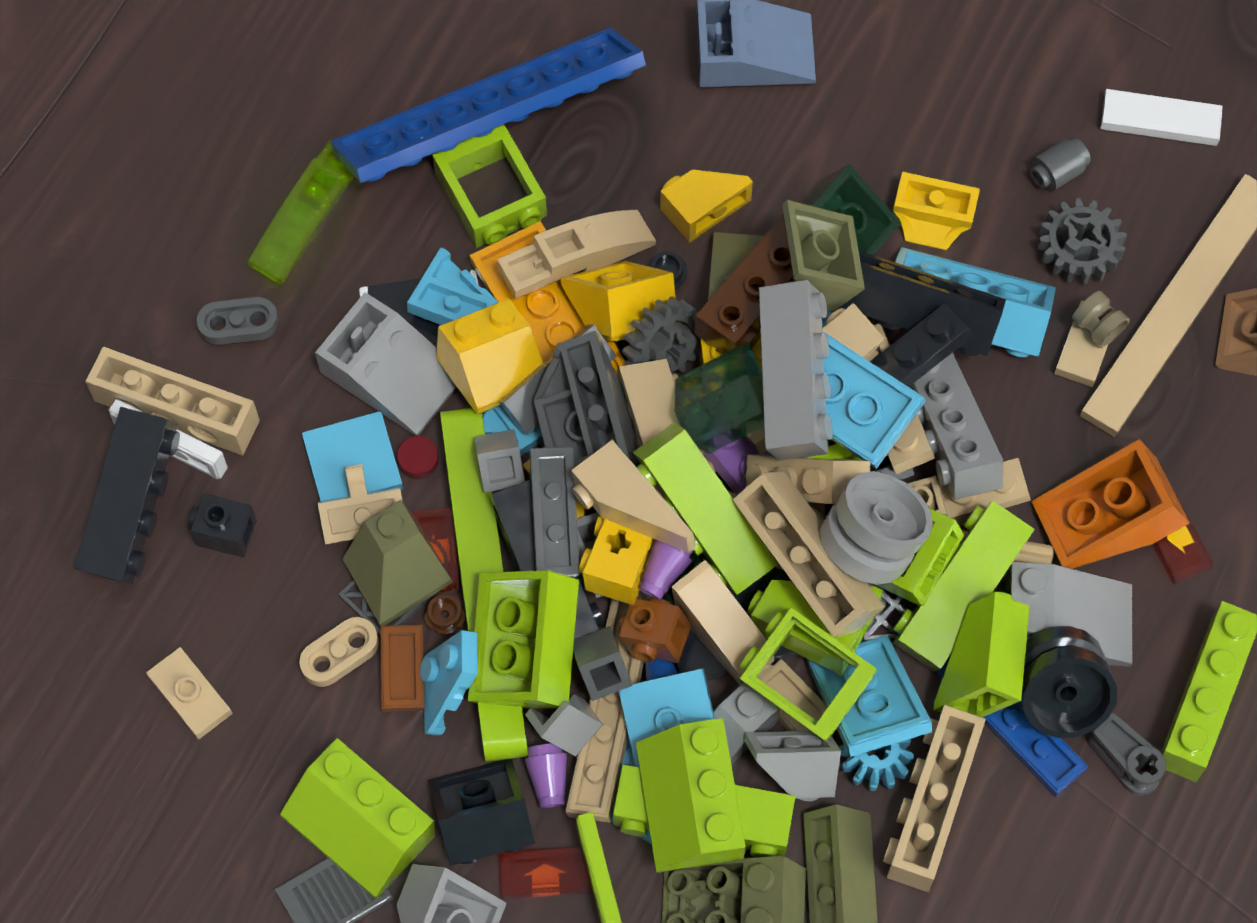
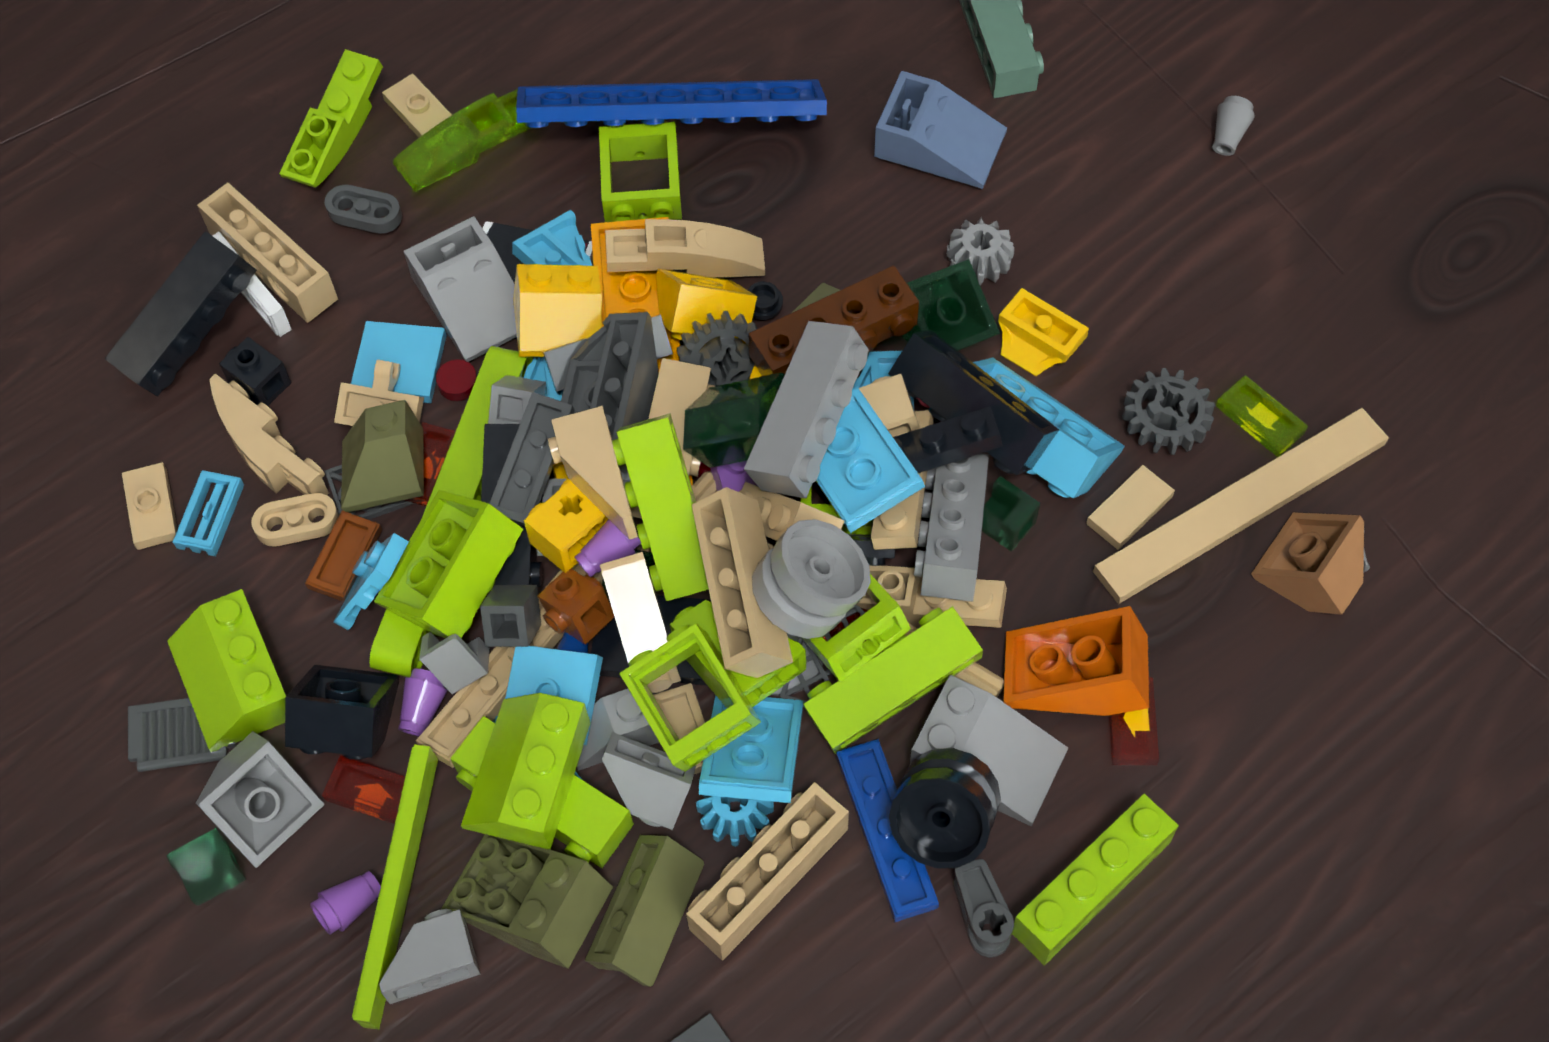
camera: 25 degrees right, 5 degrees down
(160, 241) = (336, 122): none -> lime slope
(235, 197) = (415, 105): none -> tan plate
(253, 586) = (260, 442): none -> tan slope
(254, 711) = (212, 544): none -> medium azure tile
(441, 604) = (402, 514): reddish brown plate -> none
(703, 200) = (827, 251): yellow slope -> none
(824, 251) = (888, 314): olive slope -> none
(833, 138) = (984, 247): none -> light grey gear
(987, 657) = (878, 752): lime slope -> none
(990, 389) = (1009, 514): none -> clear green panel
(1059, 164) = (1179, 335): dark grey brick -> none
(1100, 318) = (1149, 485): dark tan wheel -> none
(1161, 117) = (1302, 329): white tile -> none
(1161, 213) = (1261, 416): none -> clear neon green tile

